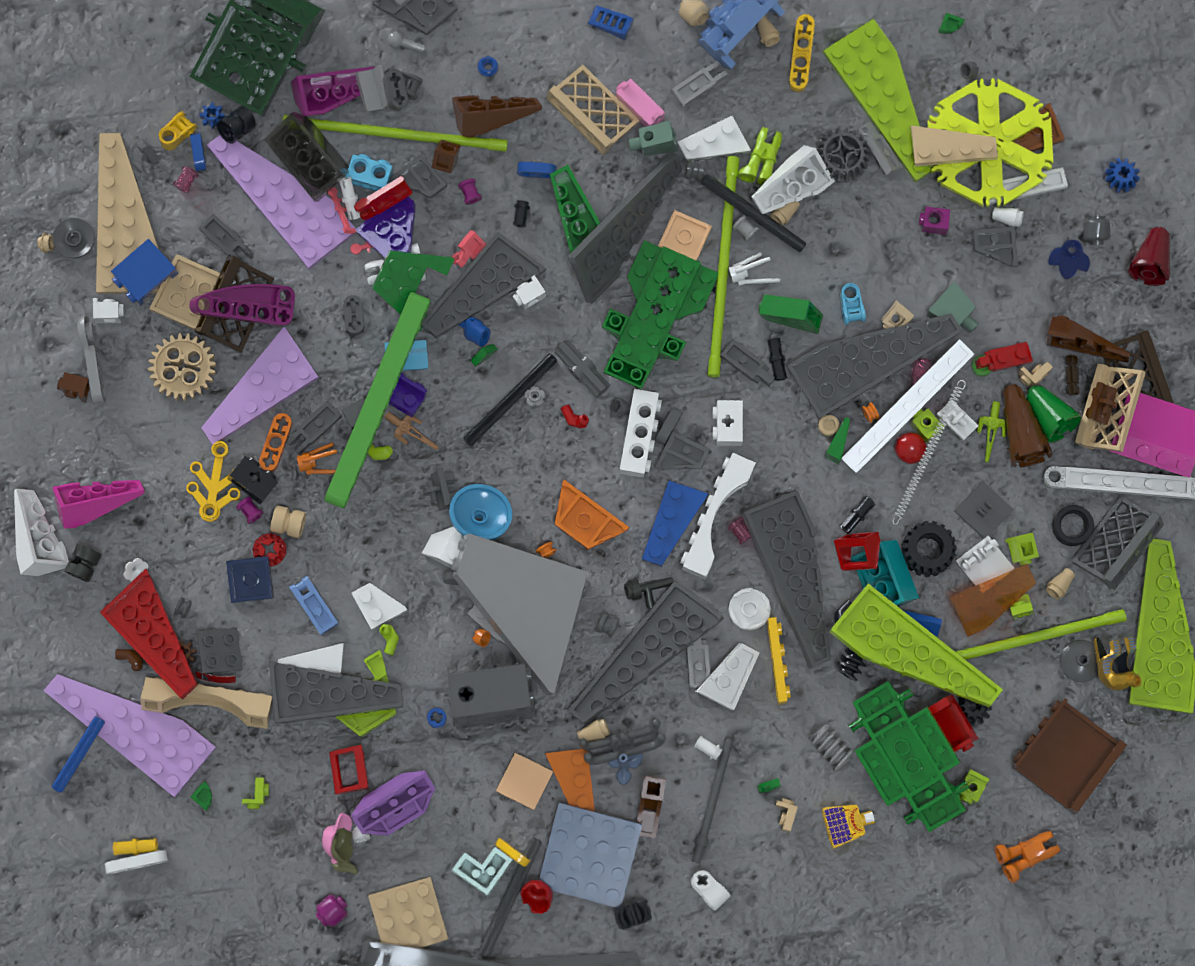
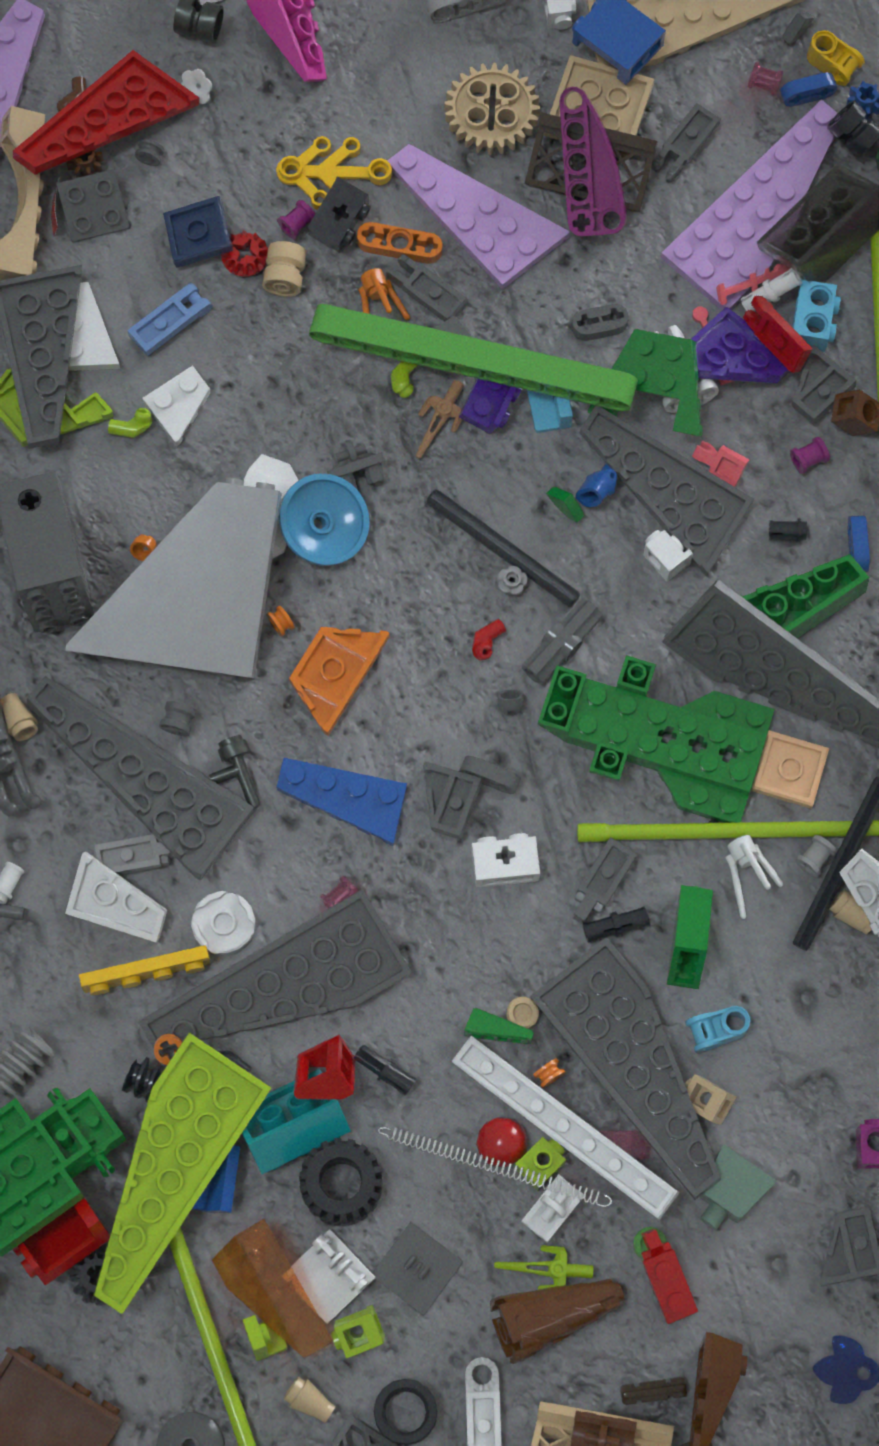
camera: 85 degrees right, 5 degrees down
(641, 401) = (488, 723): white brick -> none
(736, 476) = (296, 841): white arch -> none
(831, 656) = (171, 1039): none -> orange bush
(1038, 372) = (647, 1335): tan bracket -> none
(1052, 413) = (582, 1359): green cone -> none

